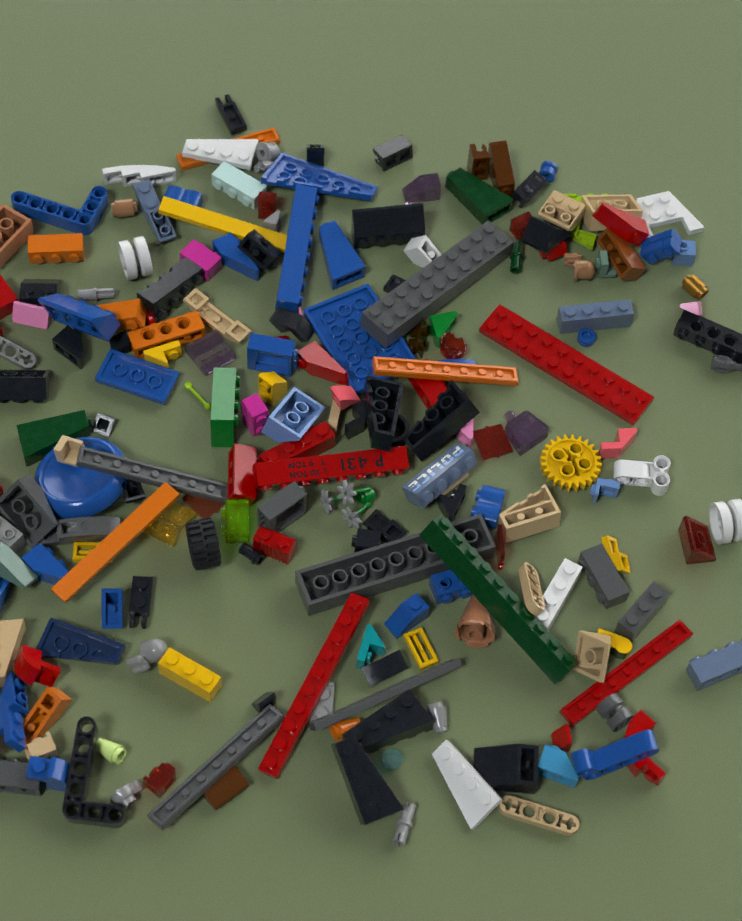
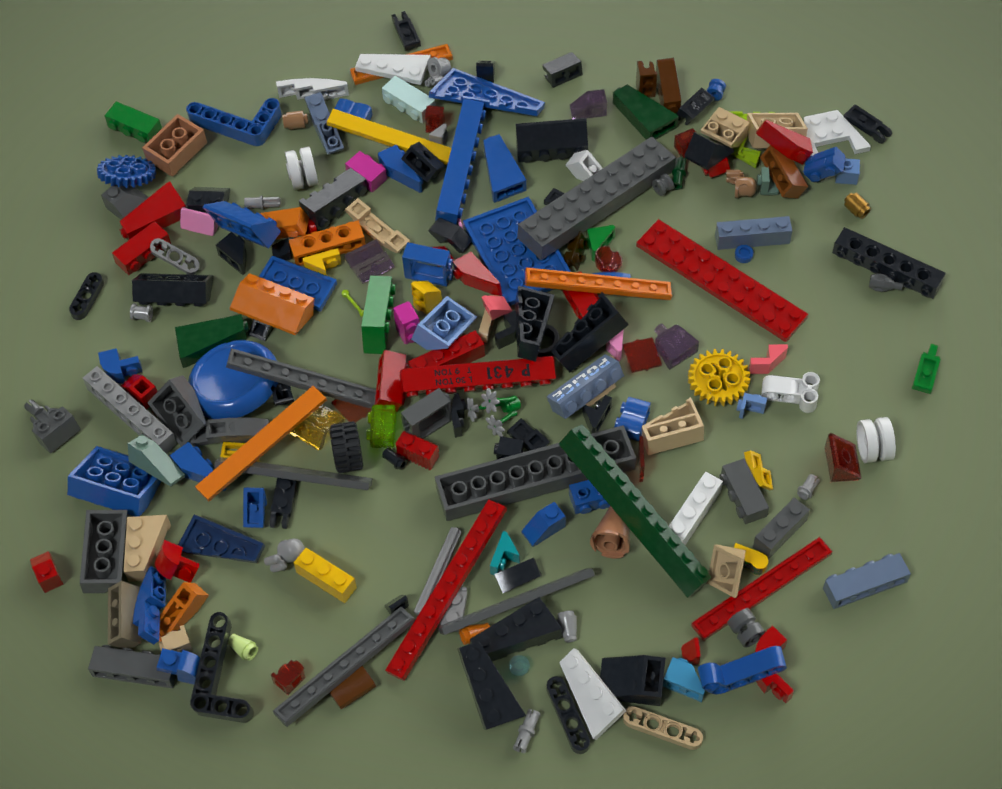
camera: 10 degrees right, 0 degrees up
(56, 248) = (226, 158): orange brick -> none
(67, 450) = (219, 352): tan panel -> none
(115, 398) = (272, 304): none -> orange slope
(125, 795) = (253, 690): light grey piece -> none
(161, 573) = (306, 475): none -> dark grey tile
(304, 664) = (439, 567): none -> light grey axle
(312, 508) = (457, 412): none -> black slope
(427, 663) = (561, 572): yellow tile -> none
(446, 805) = (565, 715): none -> black beam
(501, 269) = (663, 184): none -> dark grey wheel
(531, 589) = (669, 501): tan beam -> none
(663, 574) = (805, 491): none -> light grey pin
(693, 307) = (853, 225): bright pink slope -> none
(700, 204) = (868, 123): none -> black hinge

